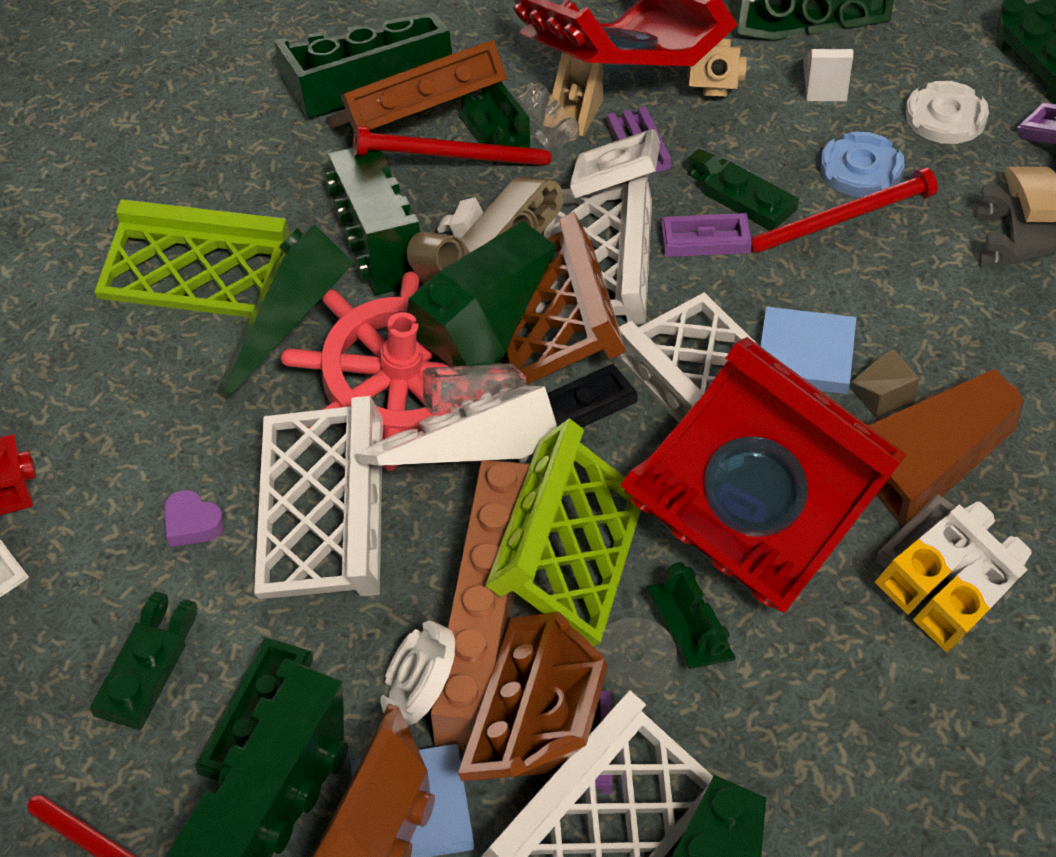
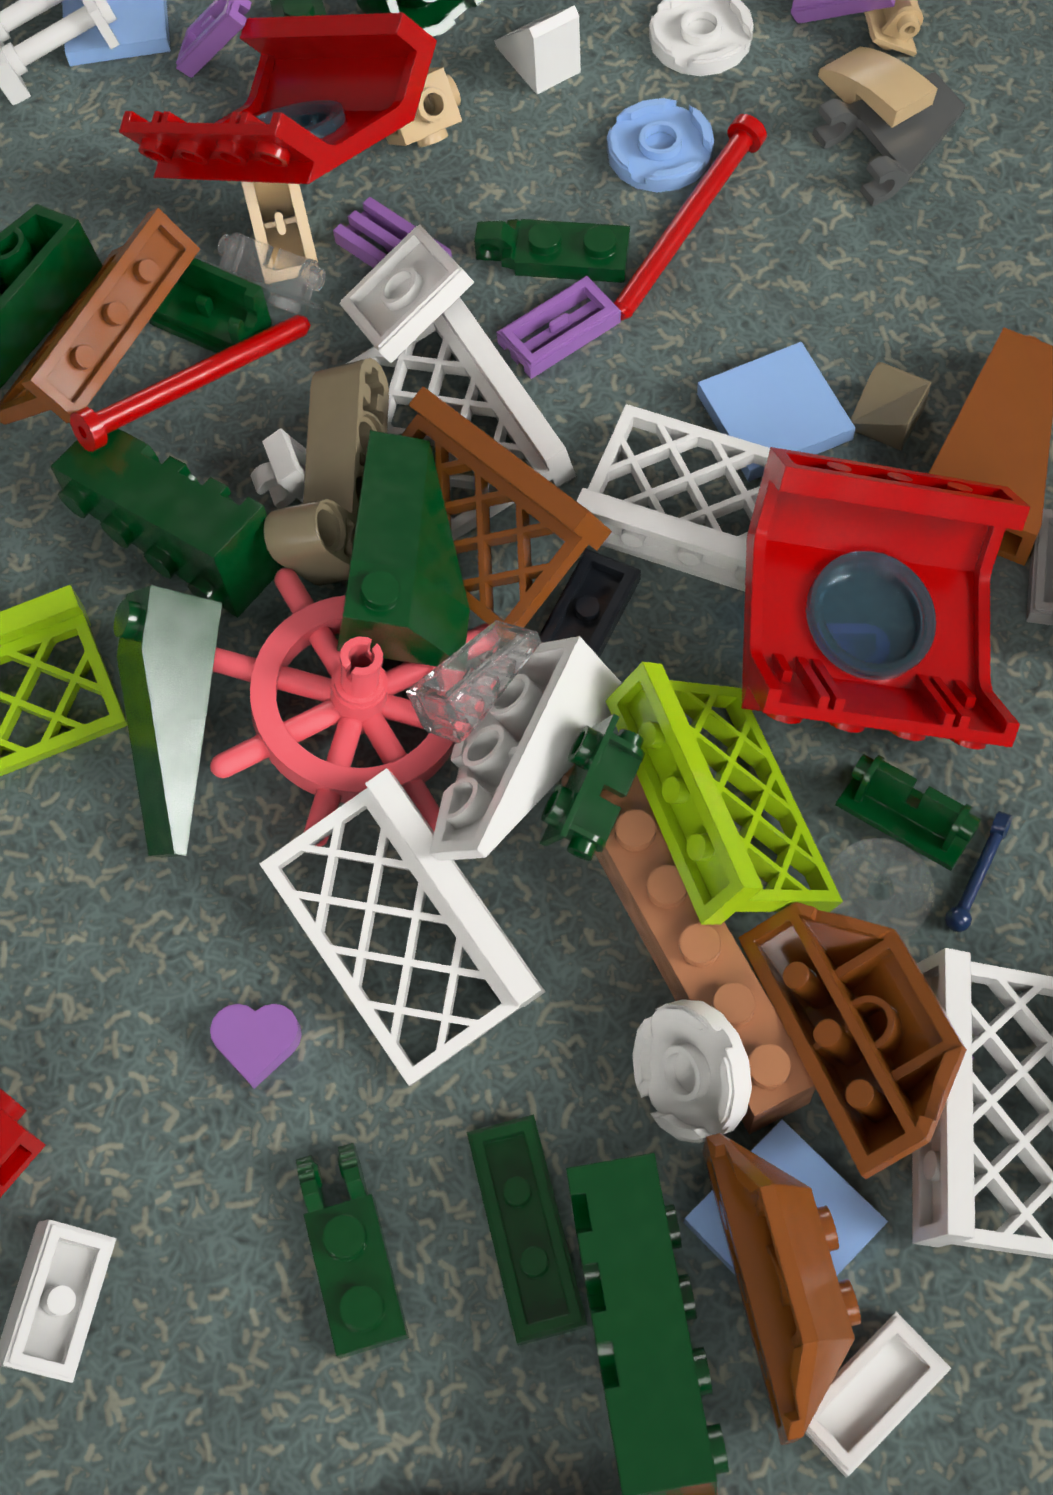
camera: 30 degrees left, 15 degrees up
(465, 480) = (577, 808): none -> dark green hinge
(748, 666) = (958, 917): none -> dark blue hinge

